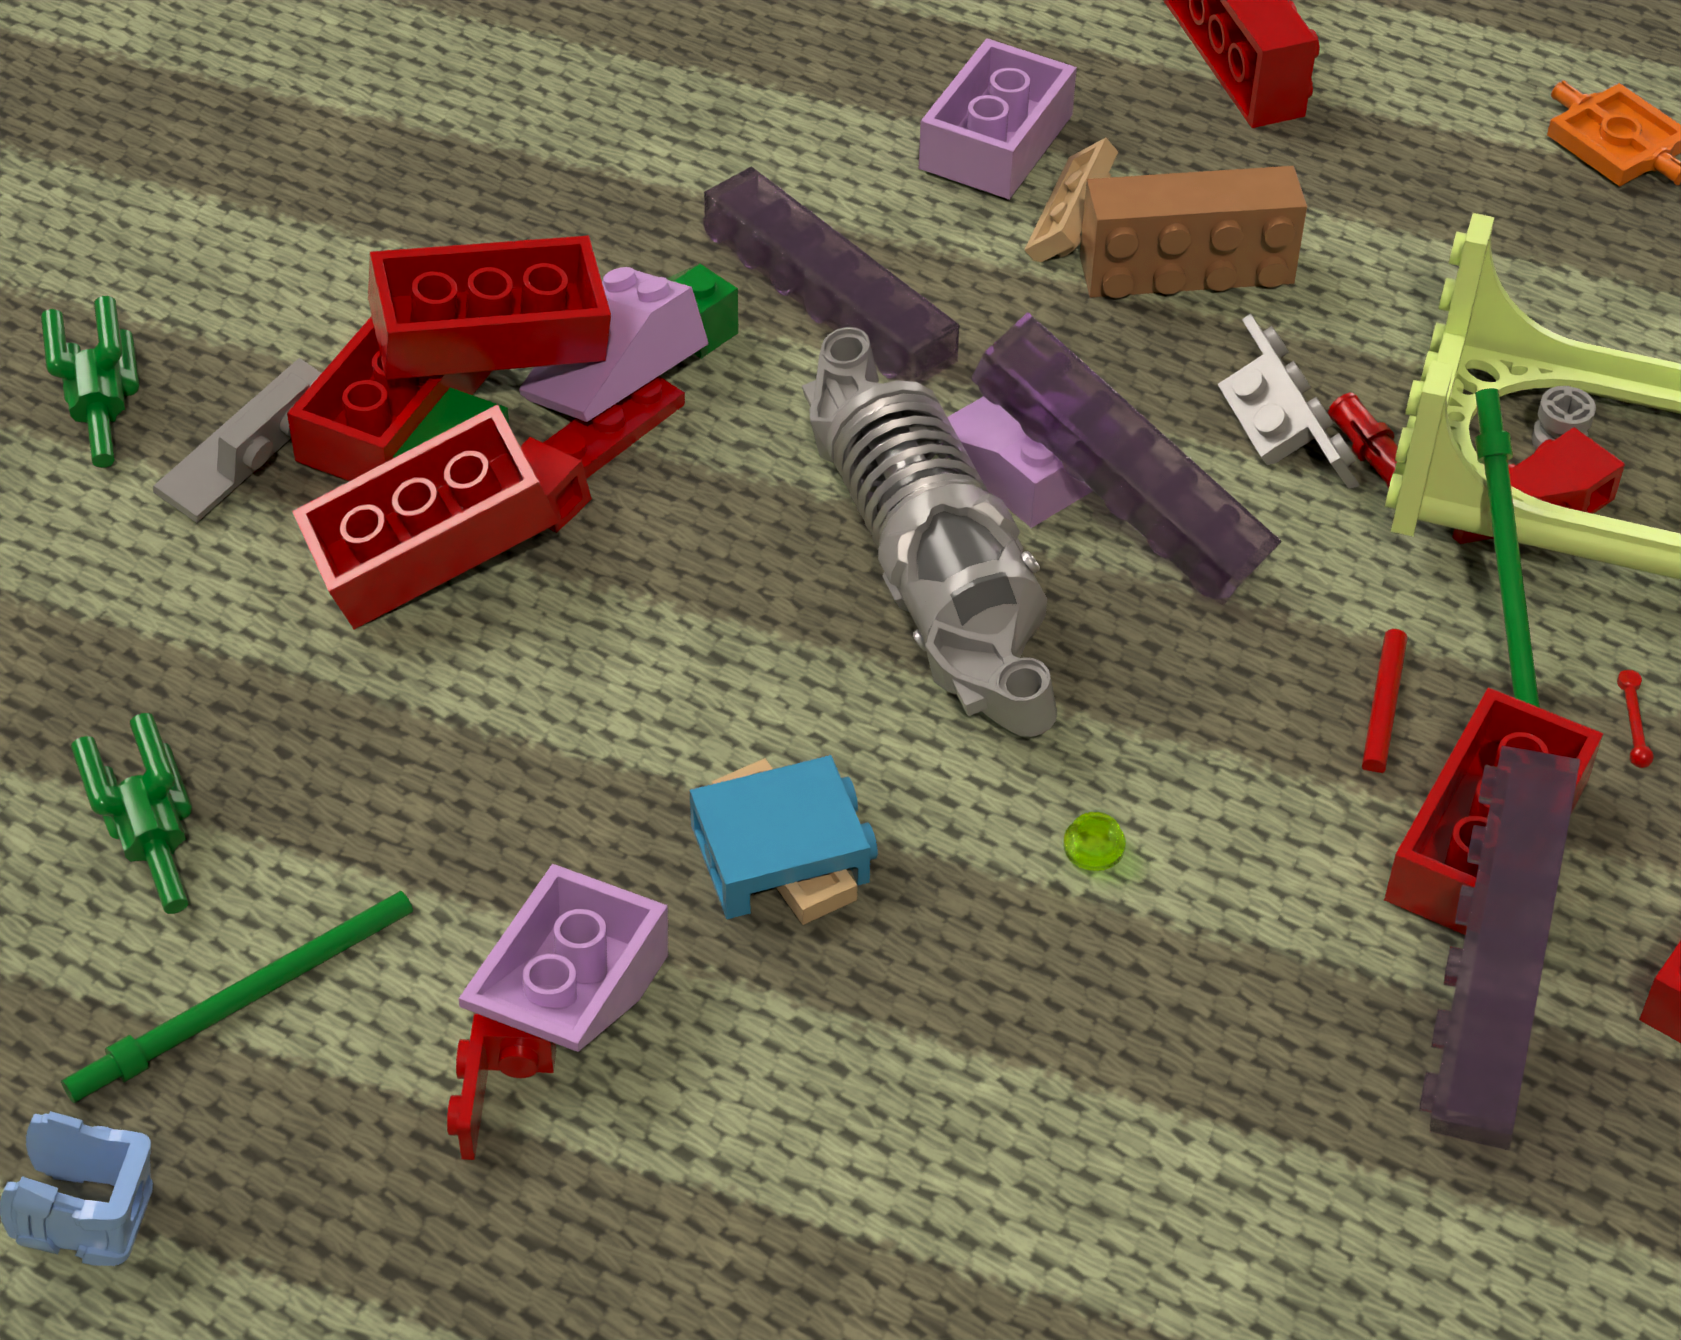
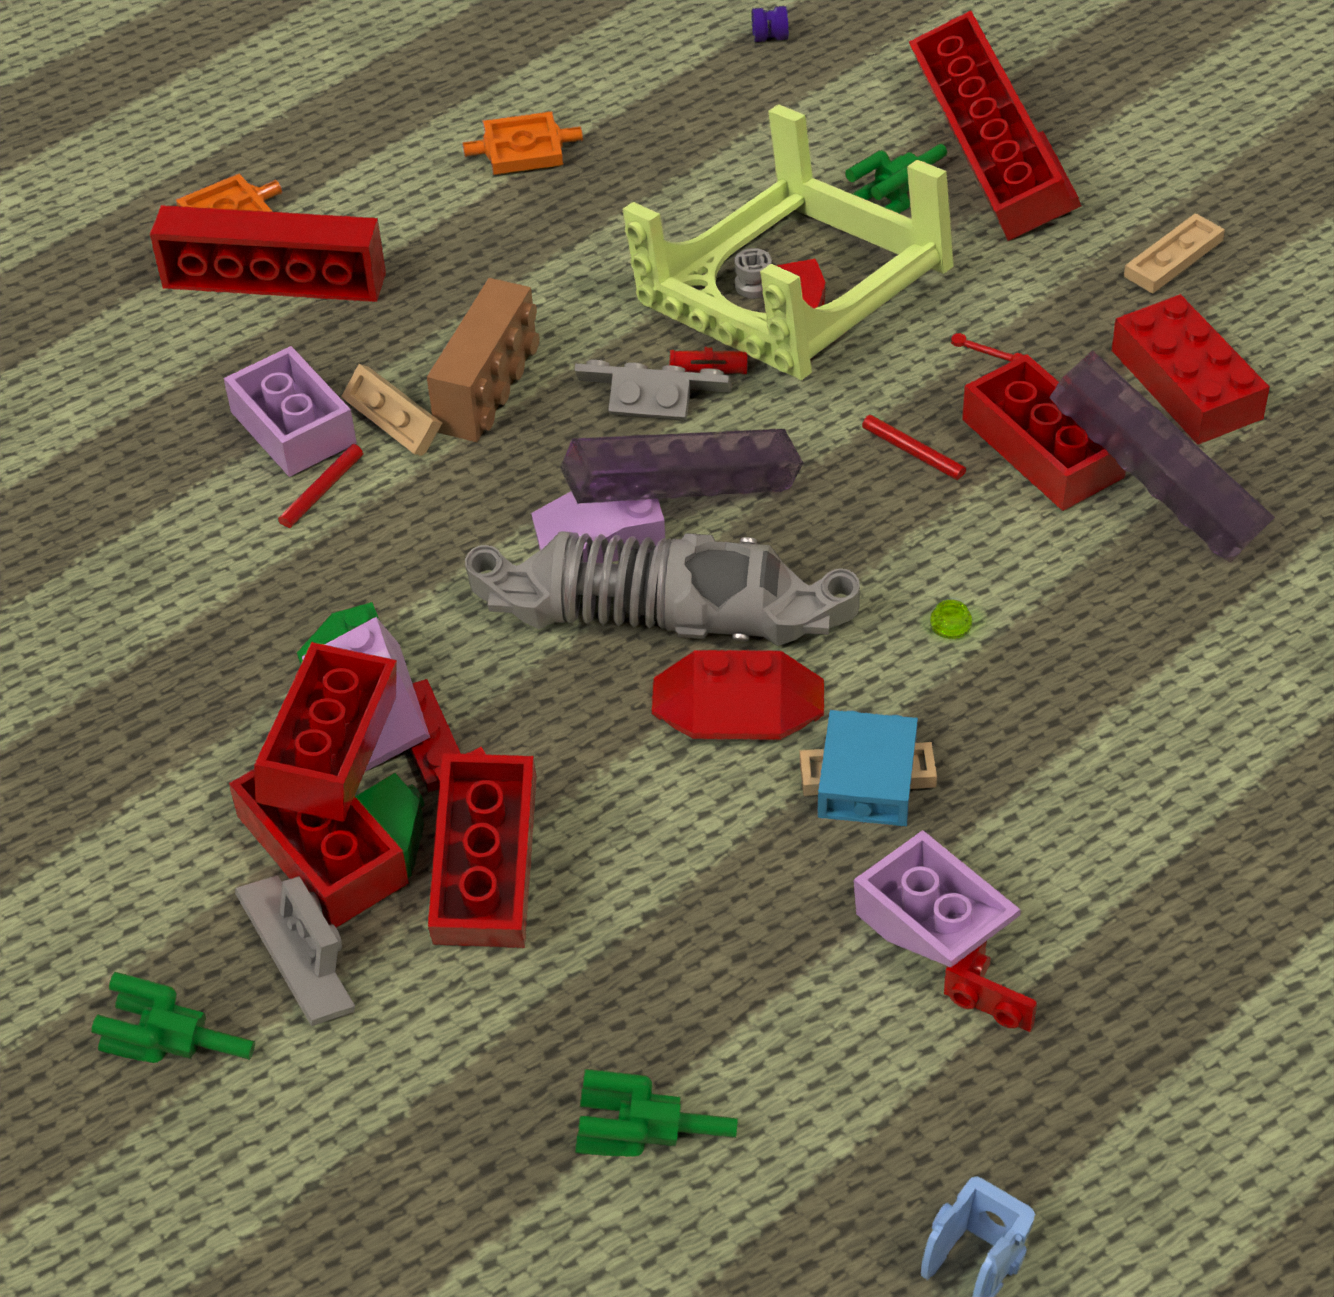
camera: 60 degrees left, 0 degrees up
(130, 1055) = (855, 1192): green bar -> none
(824, 681) = (738, 695): none -> red wedge
(830, 276) = (366, 559): clear purple brick -> none
(923, 198) = (320, 486): none -> red bar
(1494, 451) = (814, 290): green bar -> none

